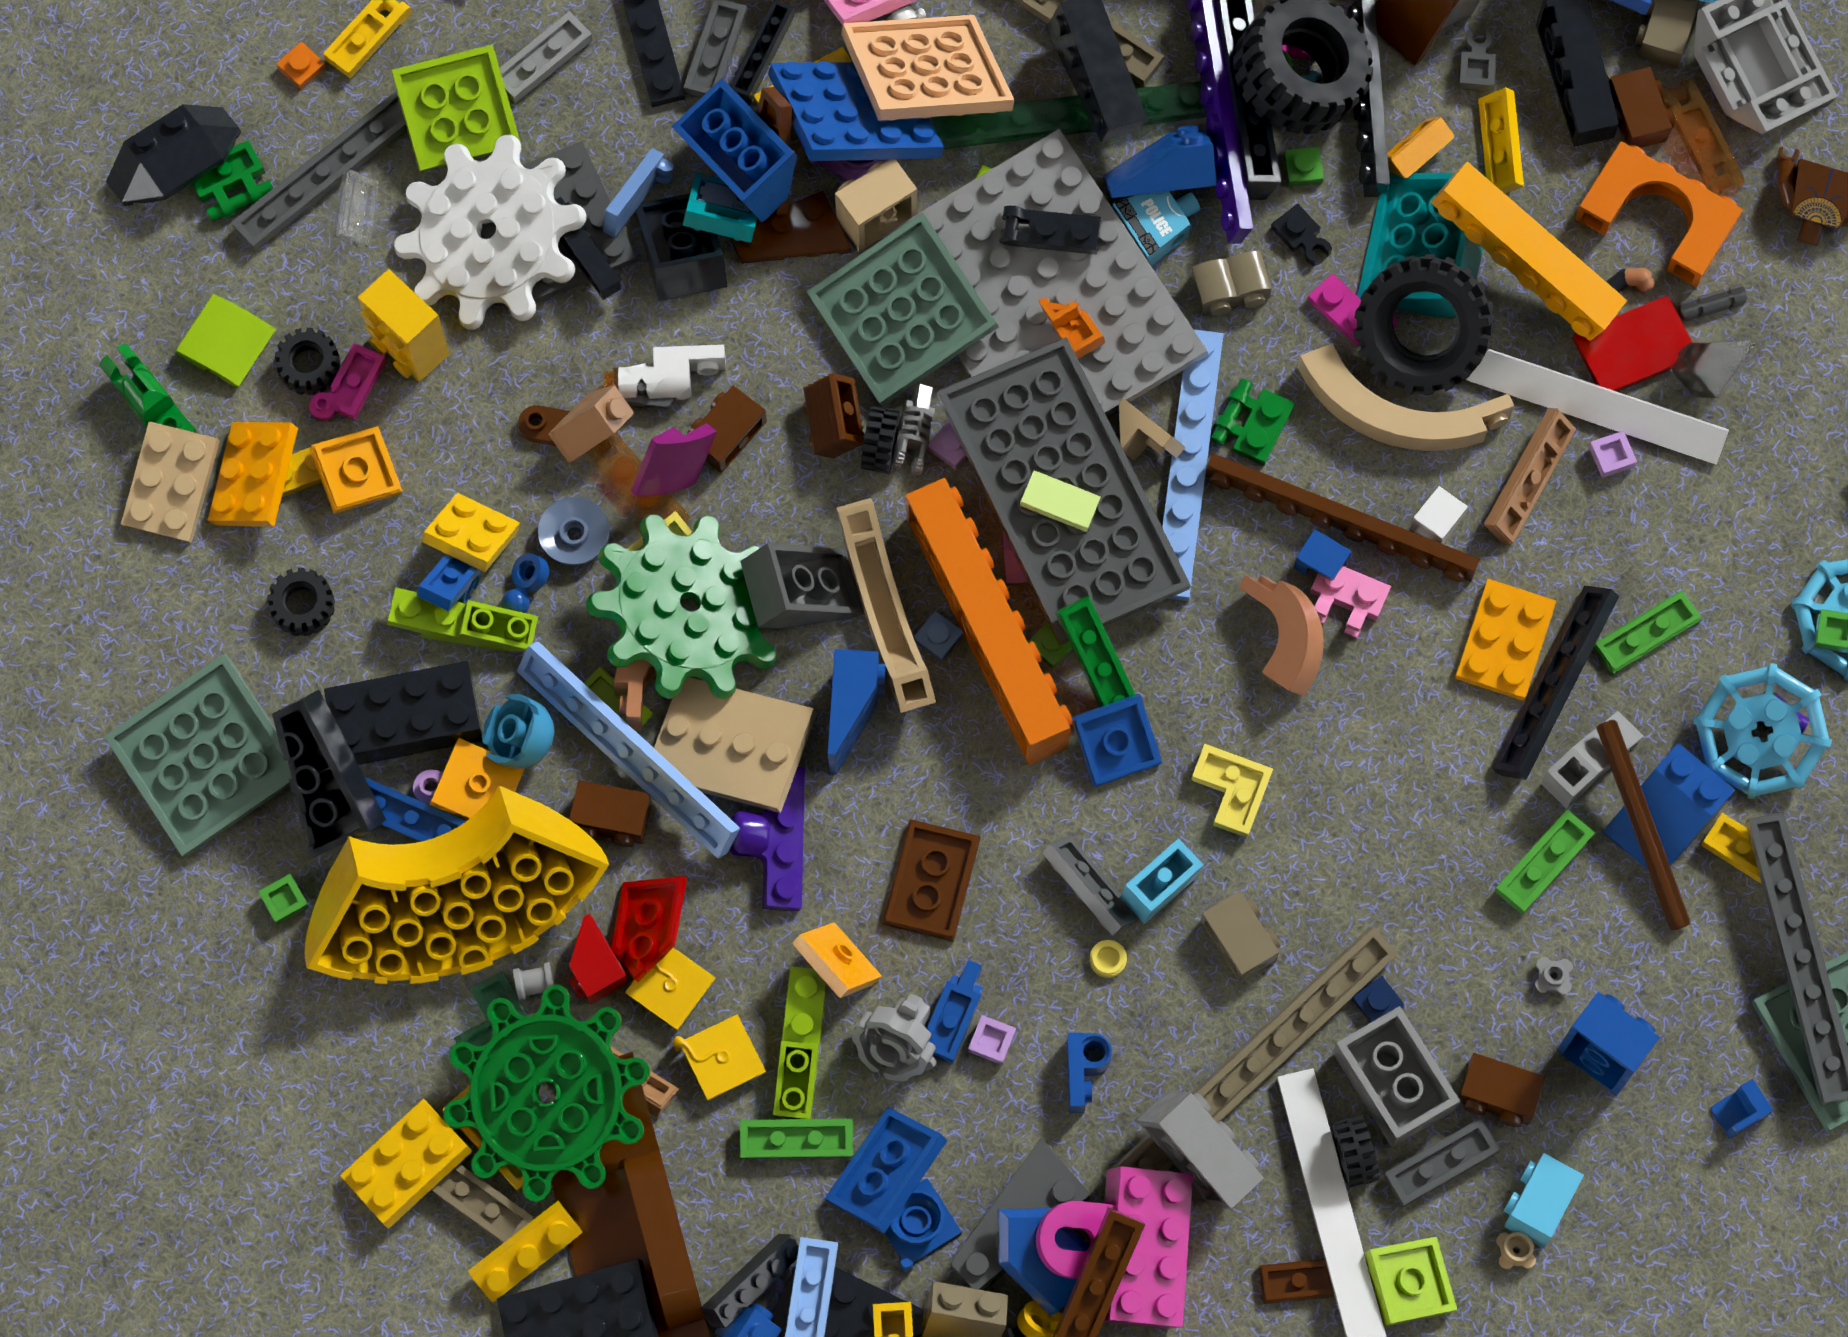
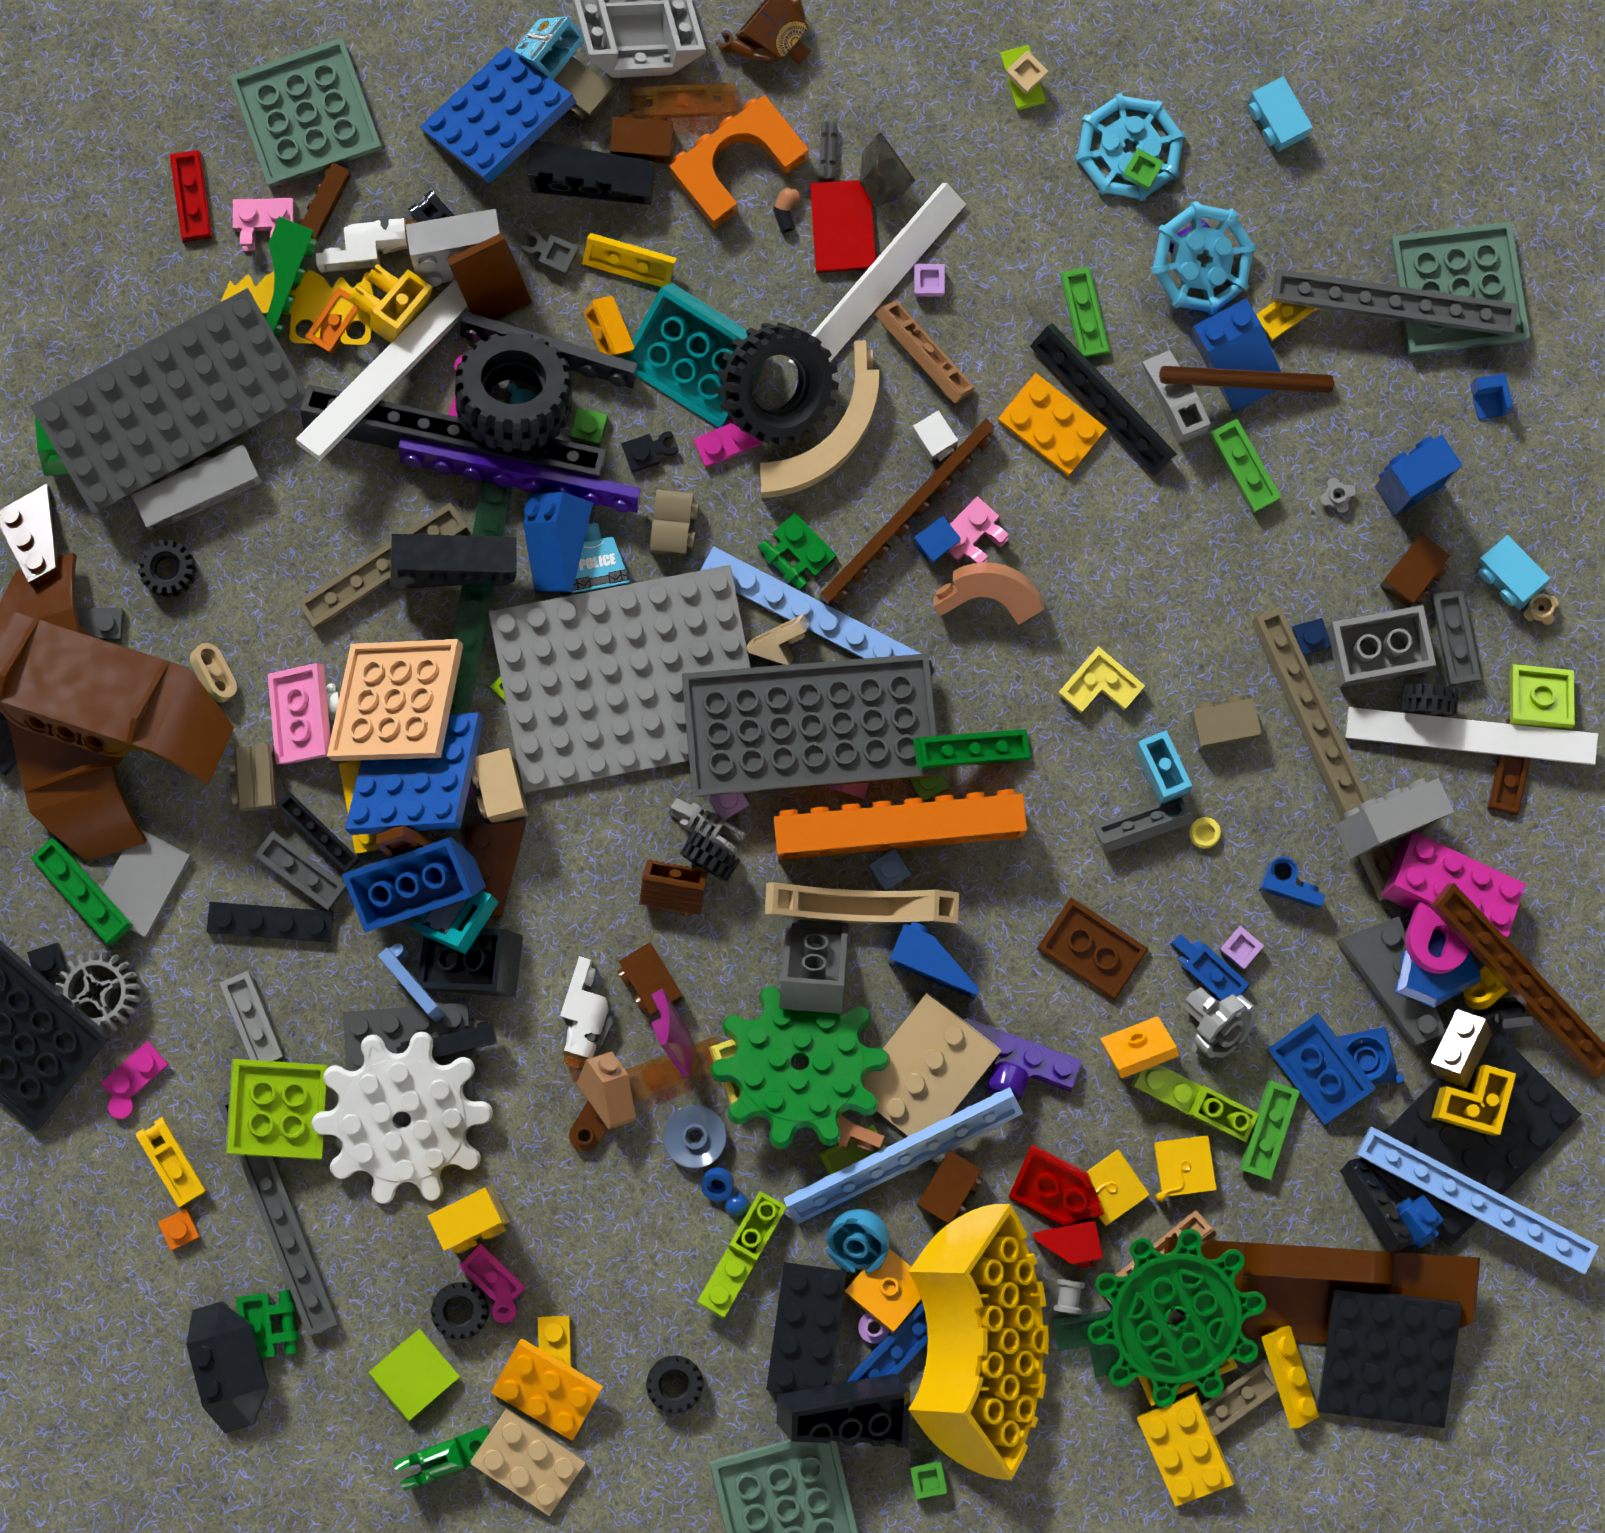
camera: 70 degrees left, 10 degrees up
(355, 469) = (574, 1301): light orange plate -> none
(356, 209) = (335, 1225): clear plate -> none
(449, 582) = (706, 1252): blue plate -> none
(471, 532) = (666, 1222): yellow plate -> none
(902, 309) = (600, 798): sand green plate -> none
(1051, 230) = (580, 651): black plate -> none
(1060, 501) = (824, 730): yellowish green tile -> none
(1074, 324) = (670, 664): orange slope -> none
(1116, 740) = (1031, 760): blue tile -> none
(1528, 251) = (744, 277): light orange brick -> none

